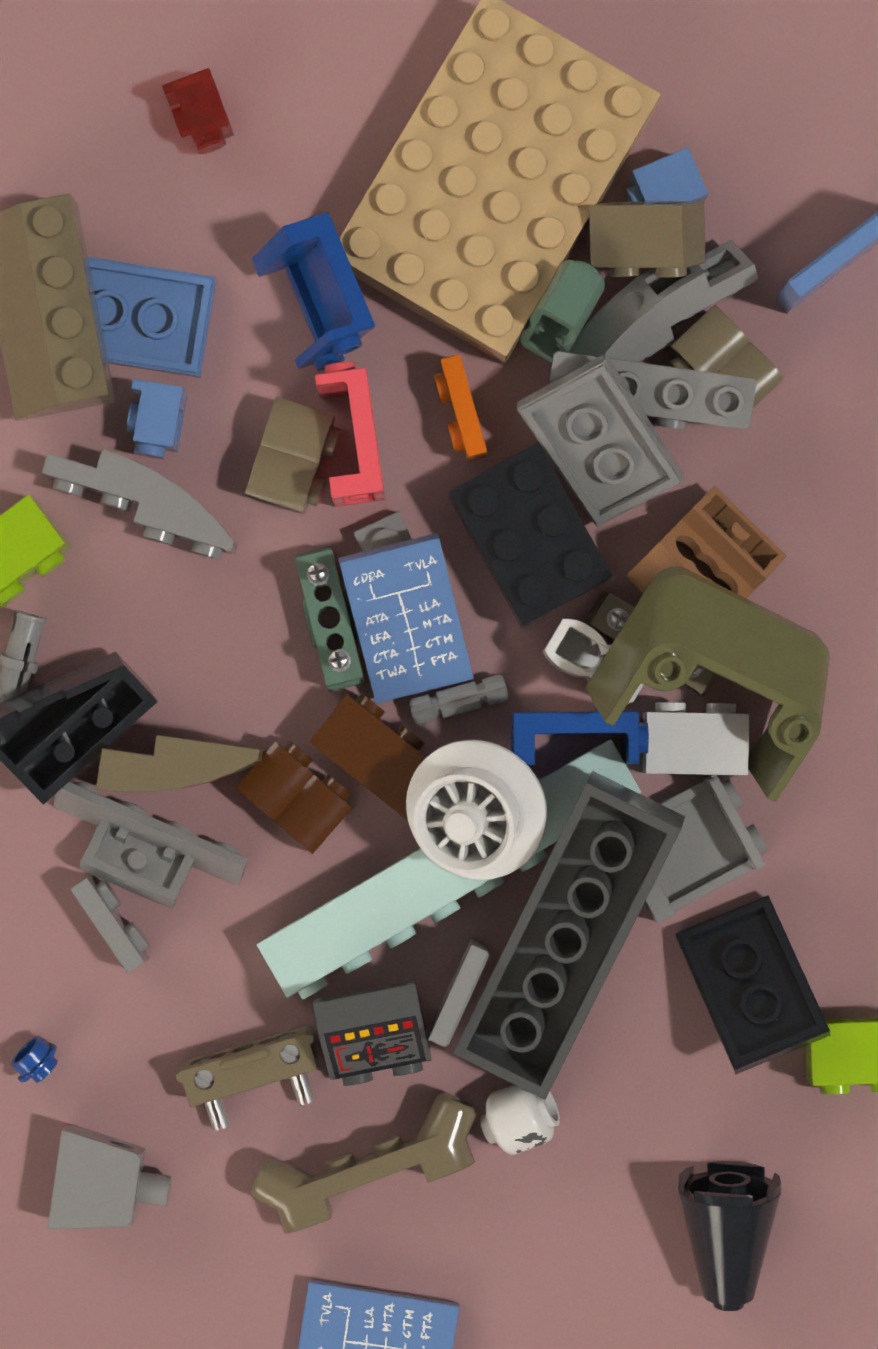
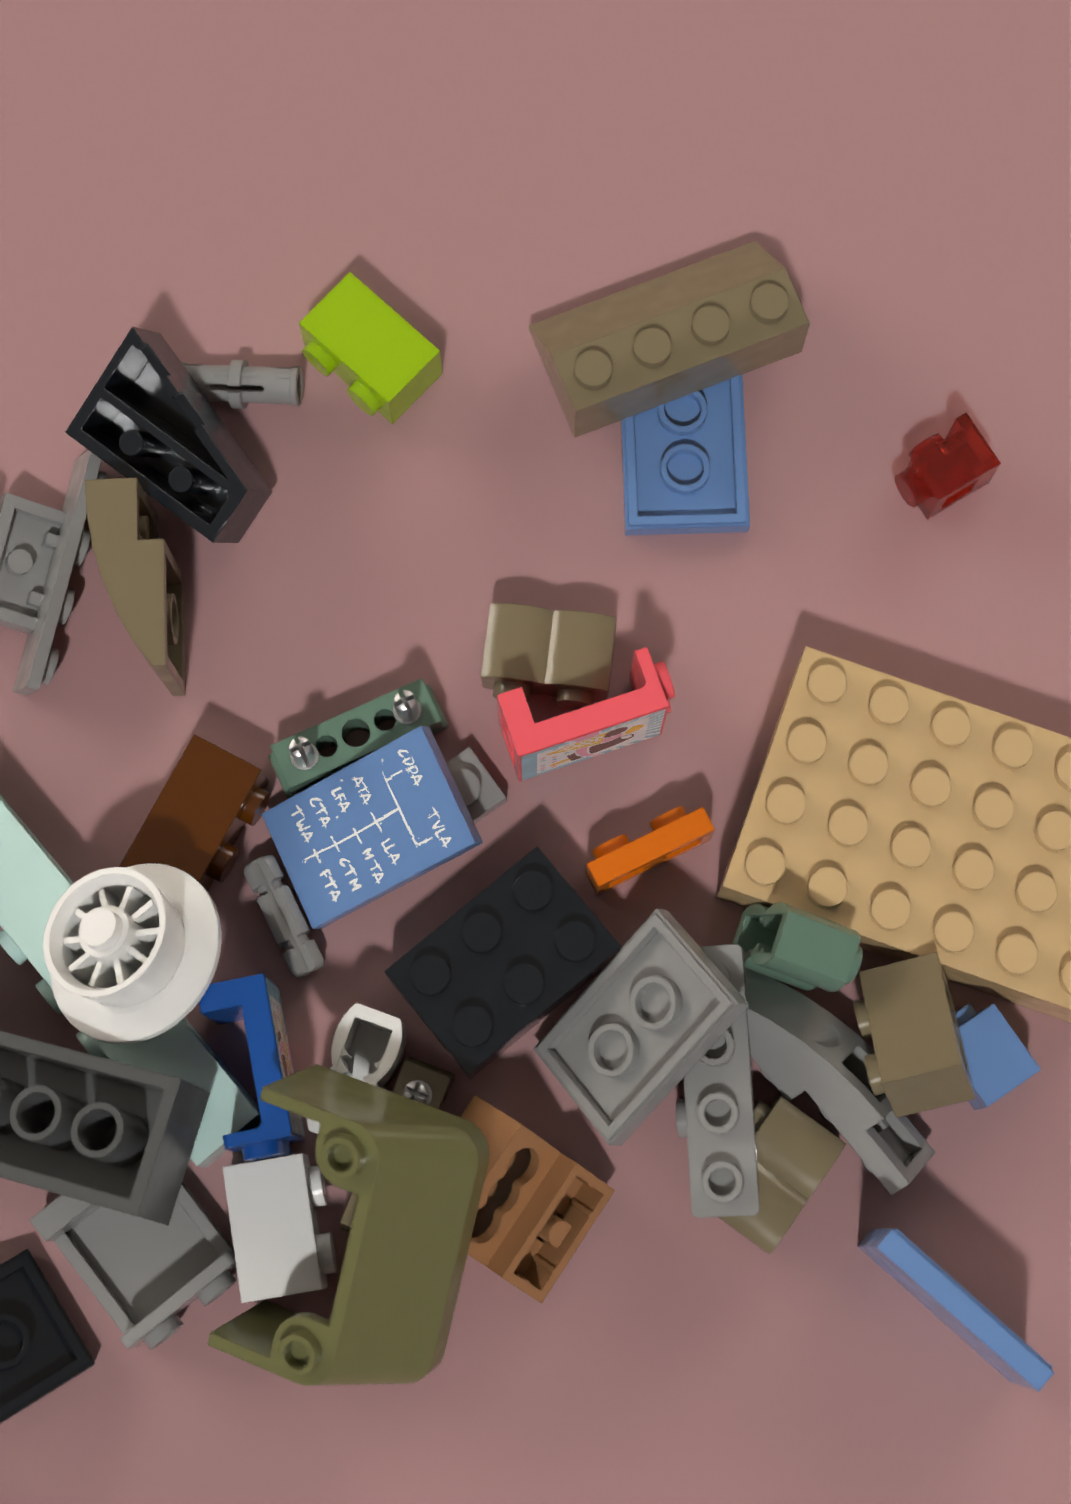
camera: 80 degrees right, 10 degrees down
(156, 417) = (563, 487): medium blue brick -> none
(162, 505) = (460, 509): light grey slope -> none
(295, 796) = (128, 736): reddish brown brick -> none
(323, 287) = (803, 623): blue panel -> none

